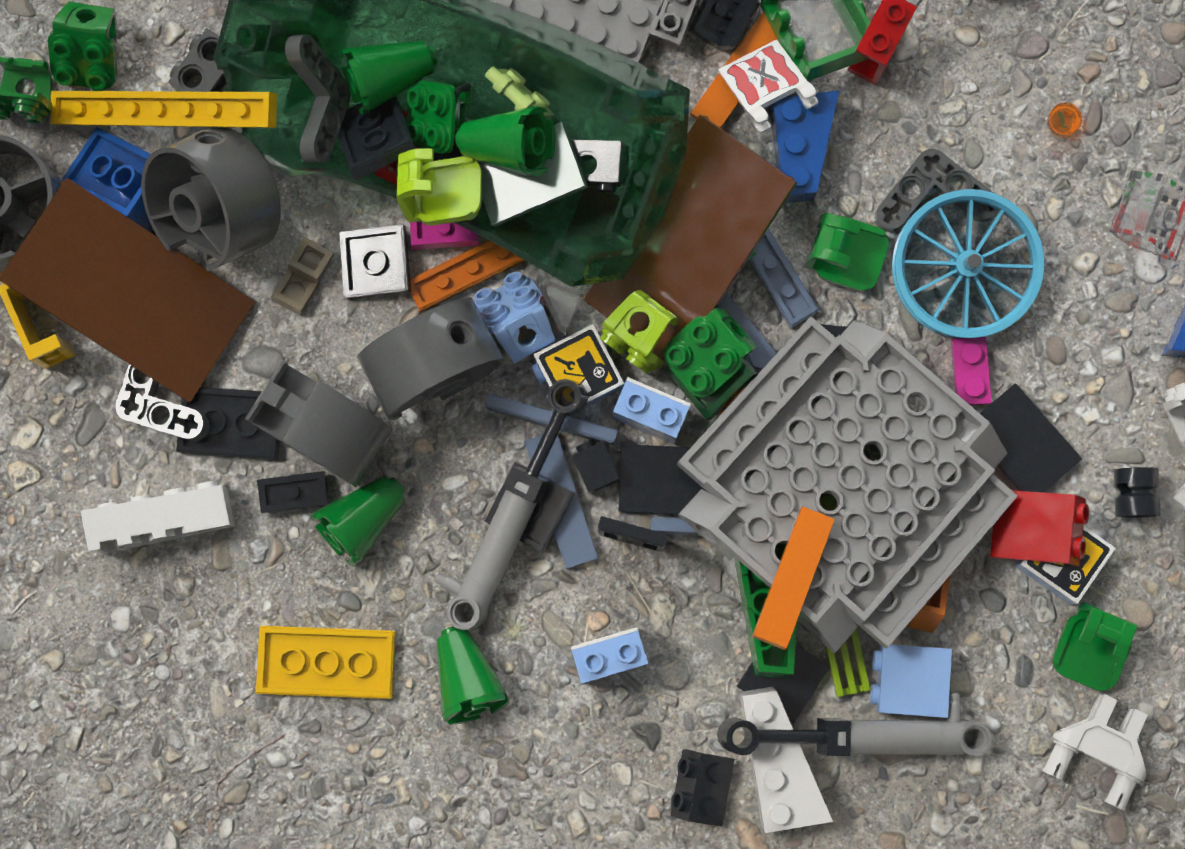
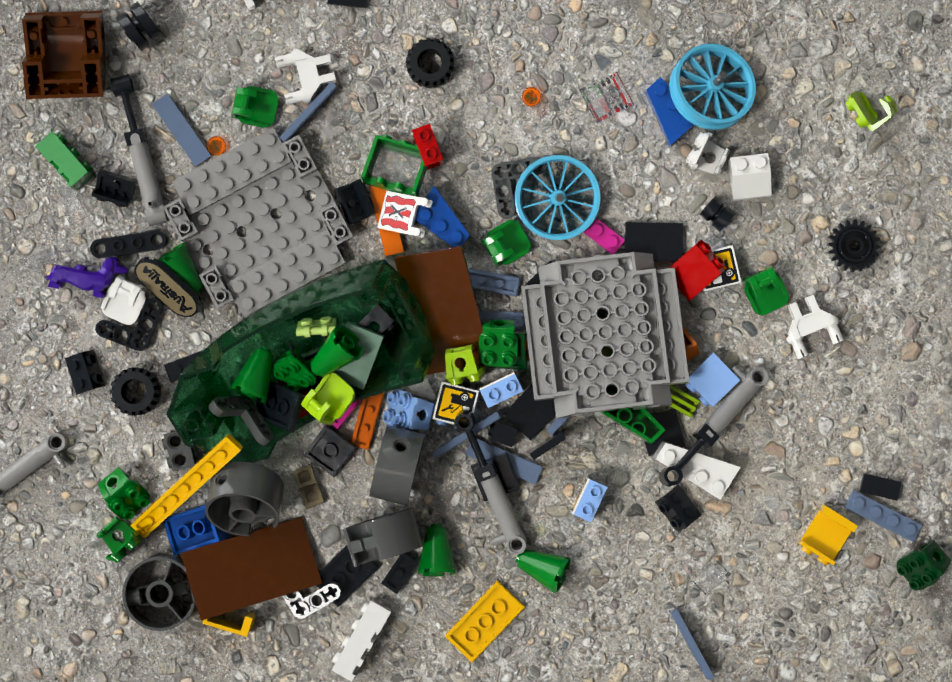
camera: 45 degrees left, 5 degrees up
(793, 578) = (626, 396): orange tile -> none

